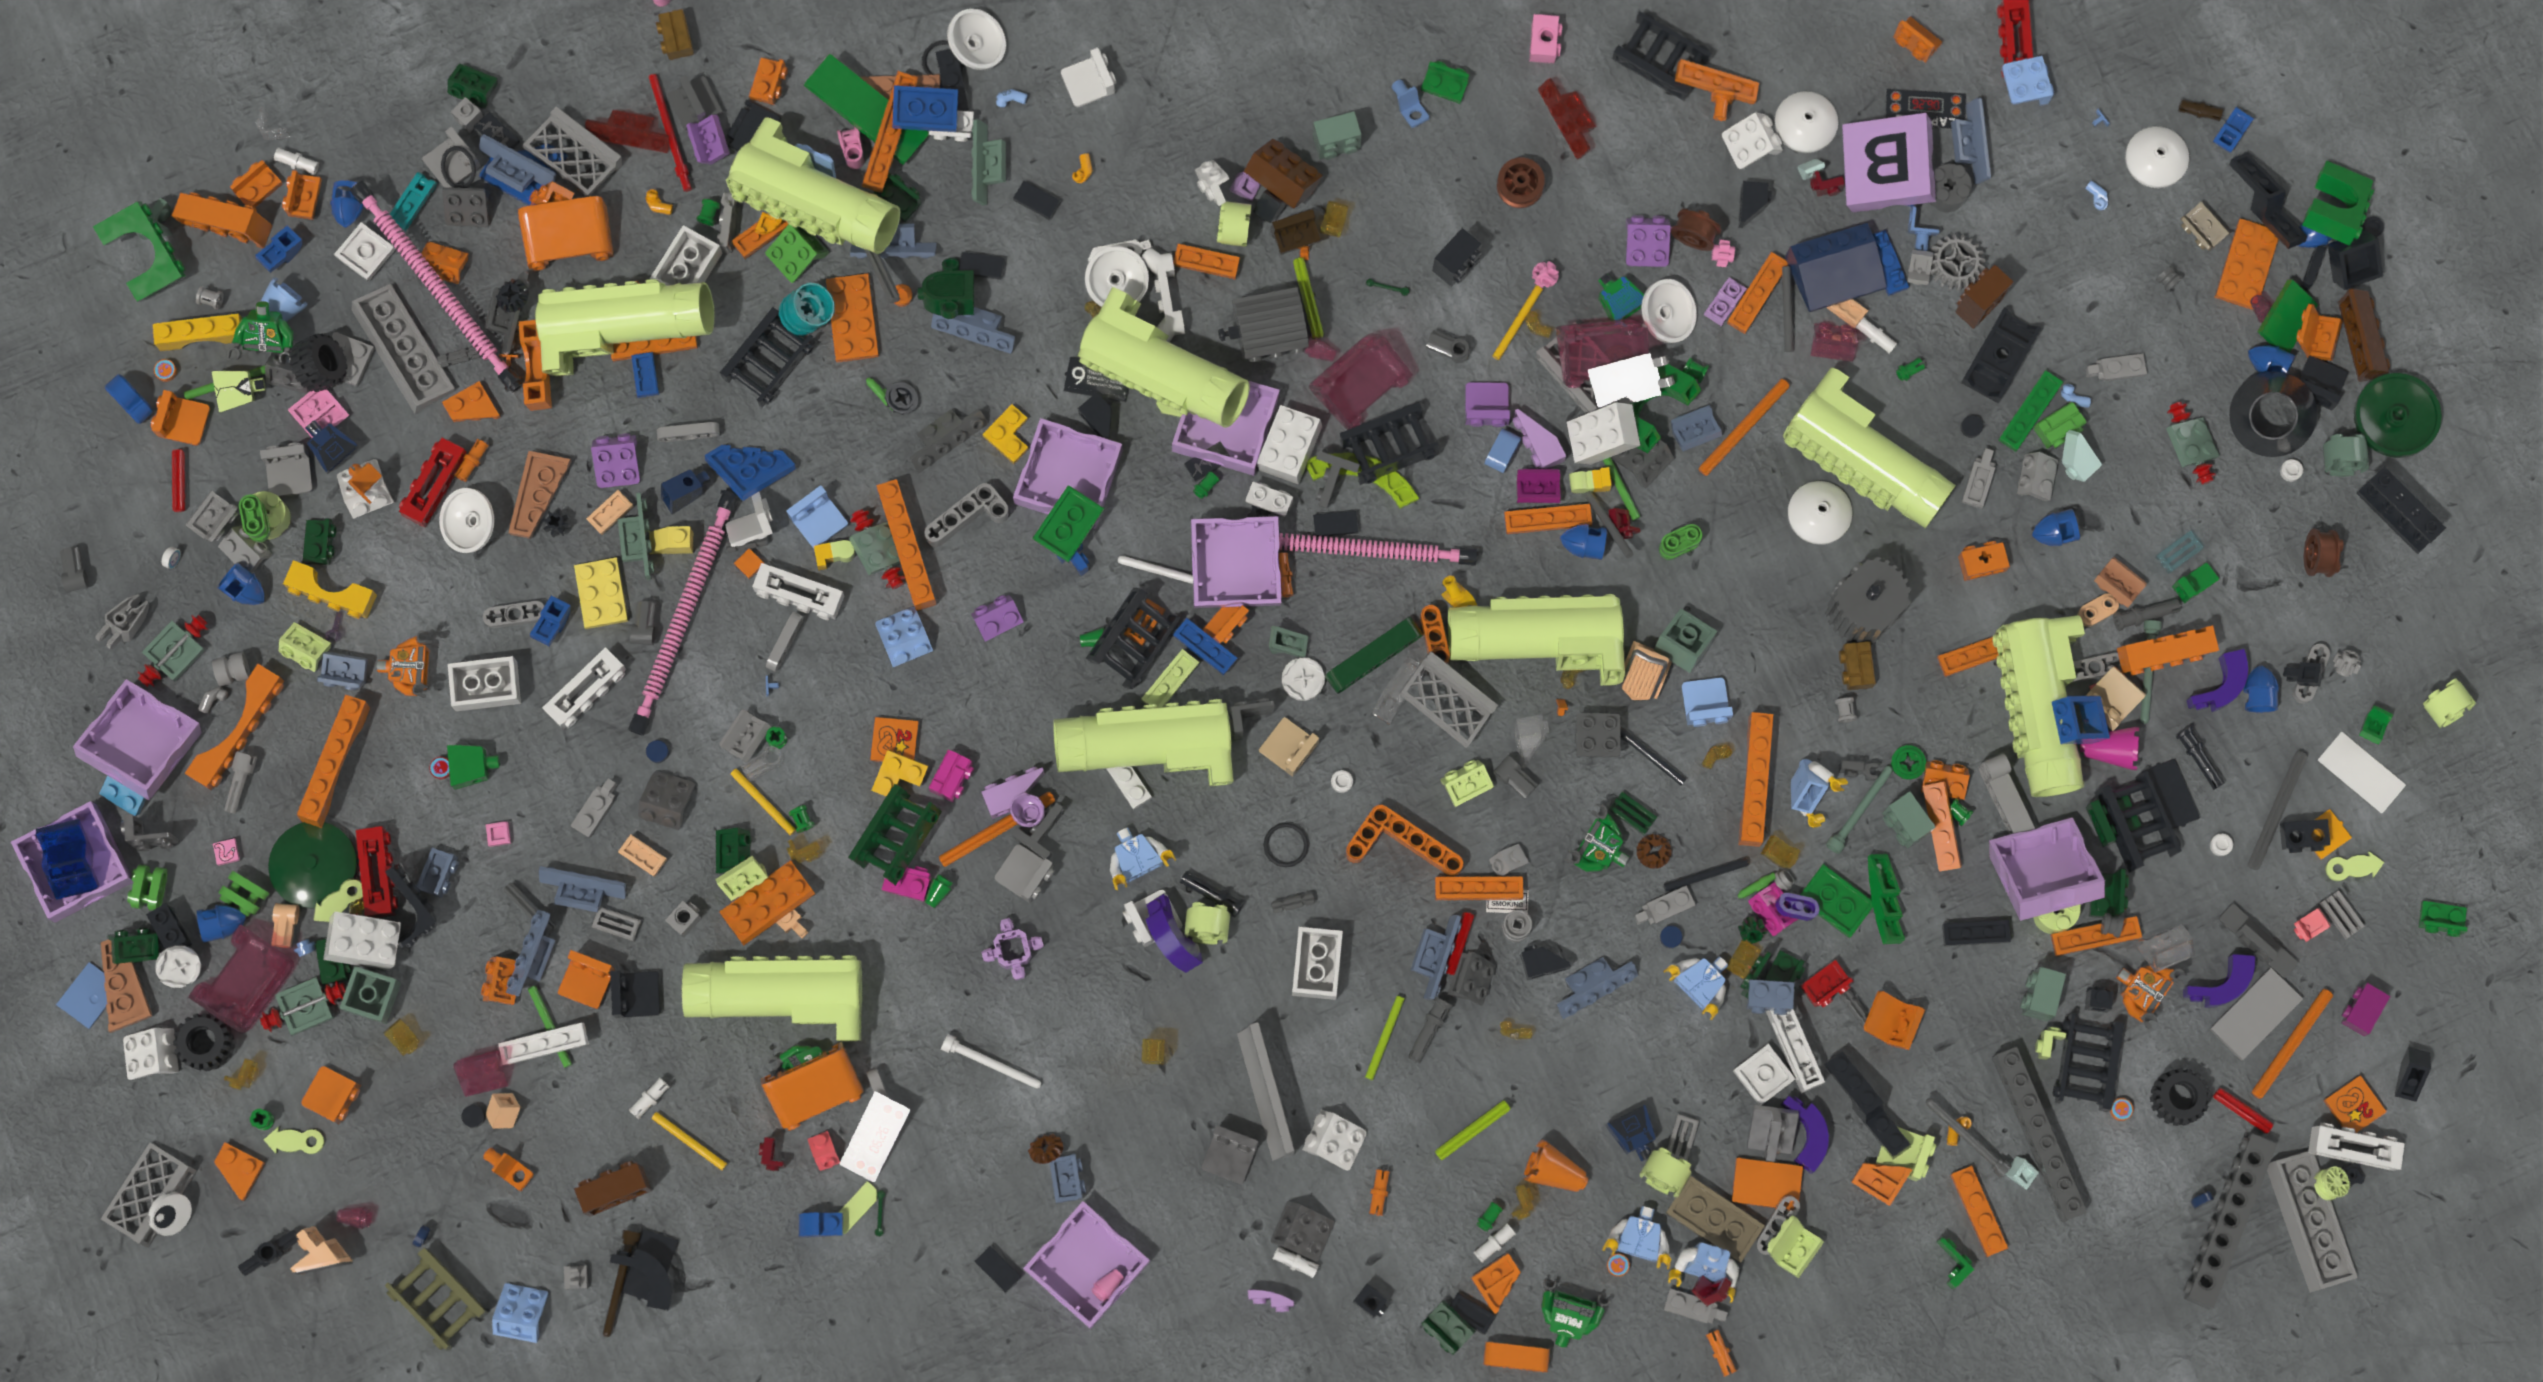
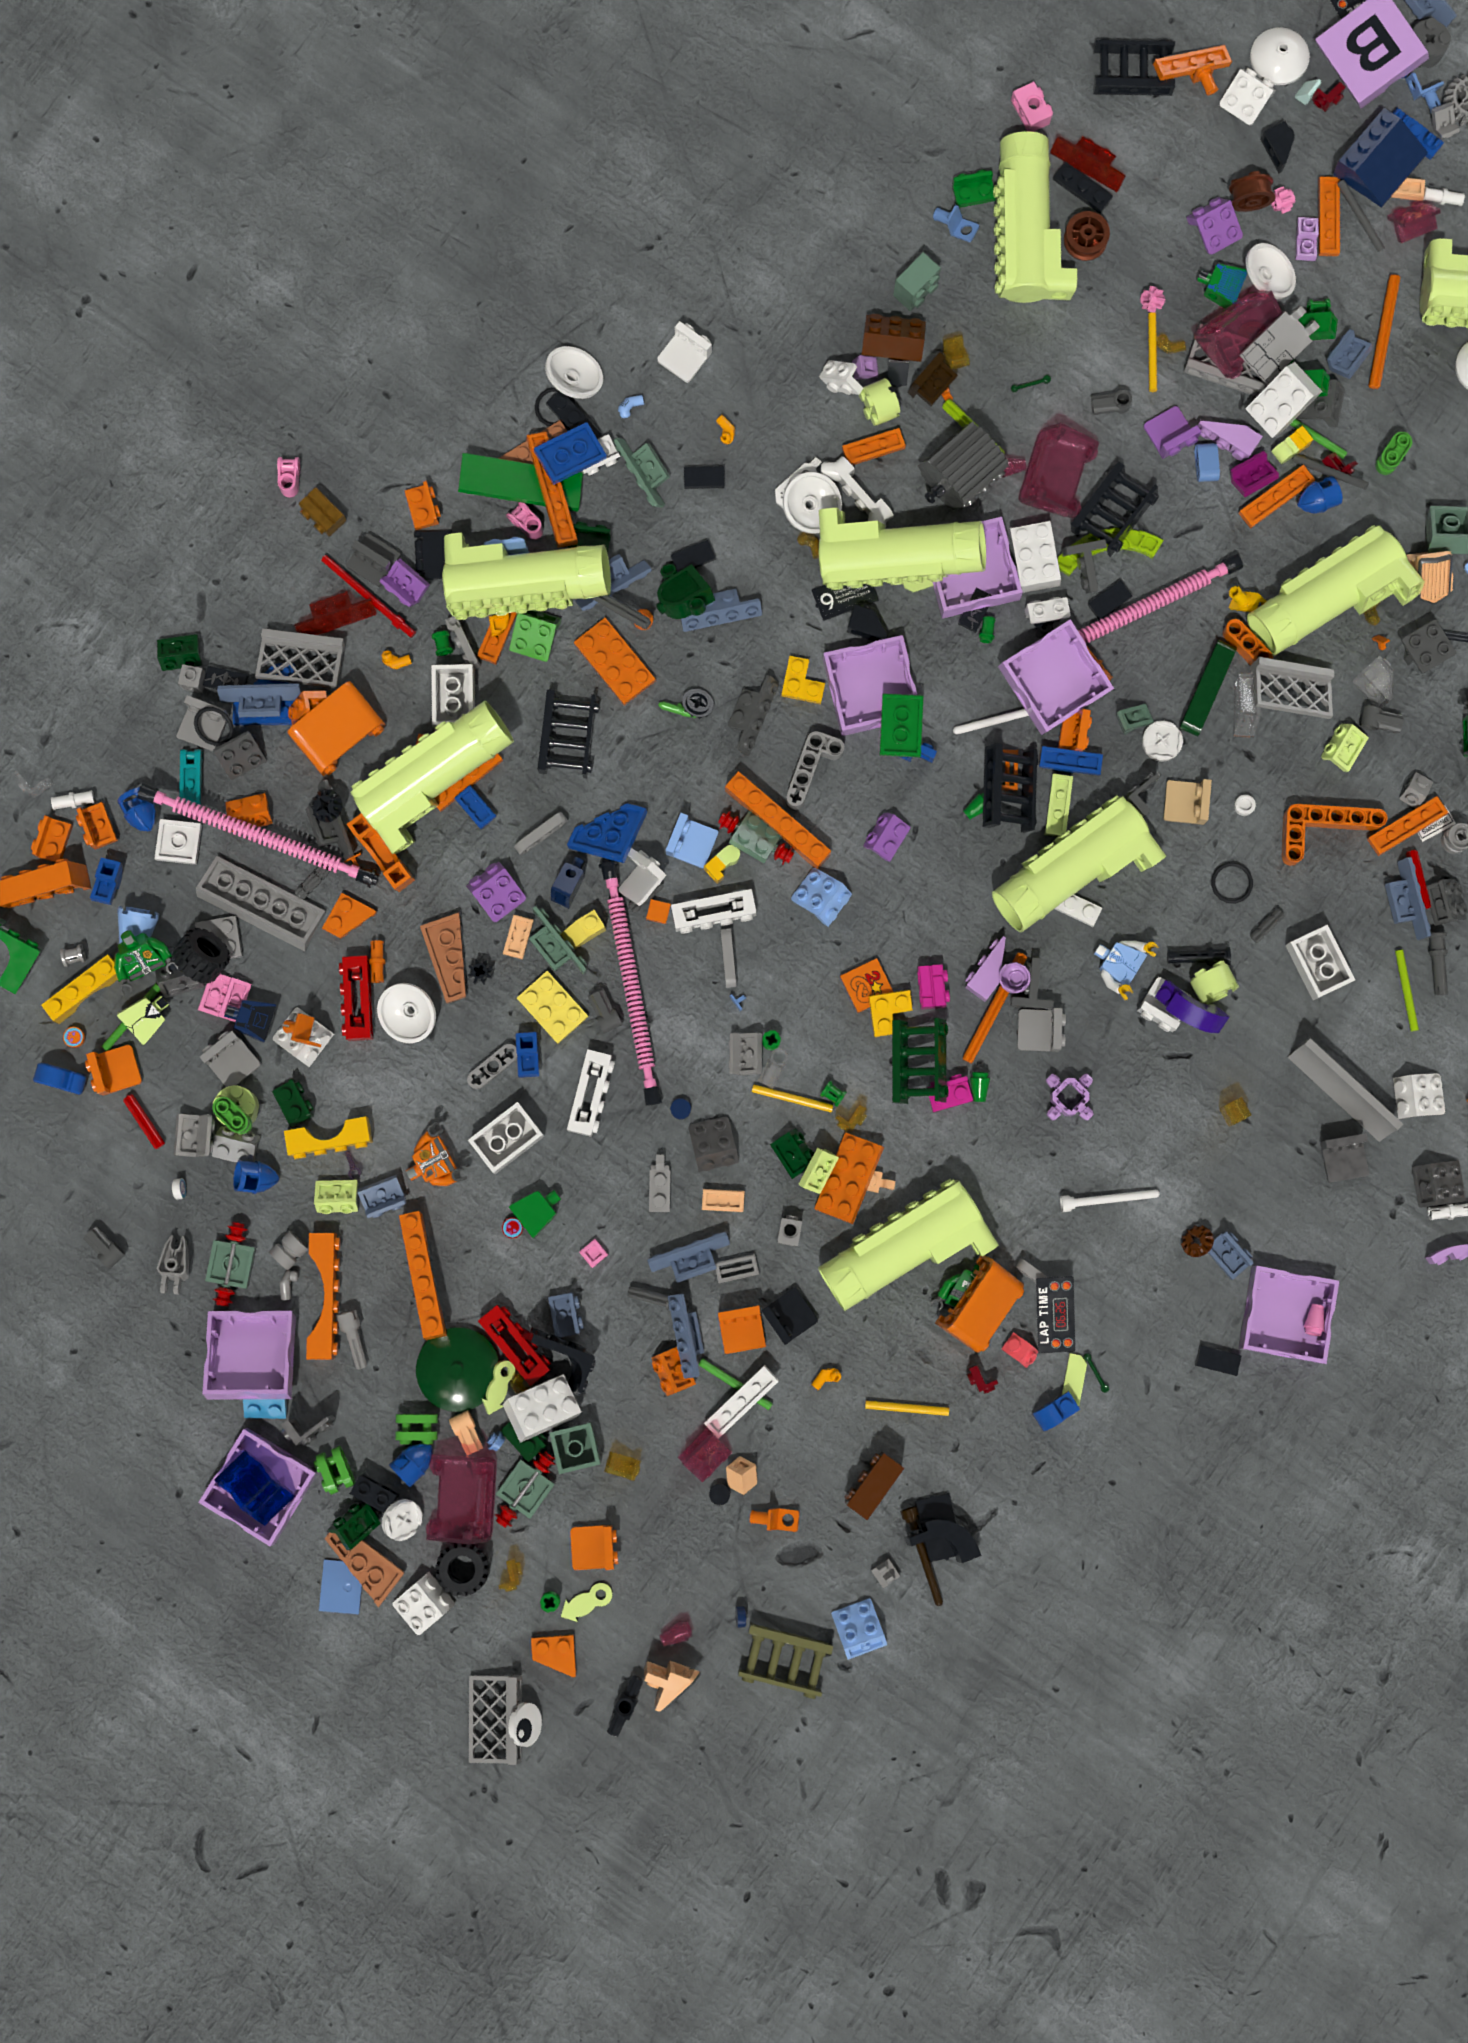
camera: 30 degrees left, 5 degrees up
(226, 852) = (380, 1402): bright pink tile -> none
(634, 1067) = (826, 1375): none -> light orange arm
(649, 1098) = (853, 1393): white pin -> none
(806, 309) = (576, 675): teal wheel -> none
(1457, 257) = (1076, 325): black piece -> none
(1459, 154) = (1025, 245): none -> yellowish green piece
(1547, 137) = (1082, 187): none -> black plate

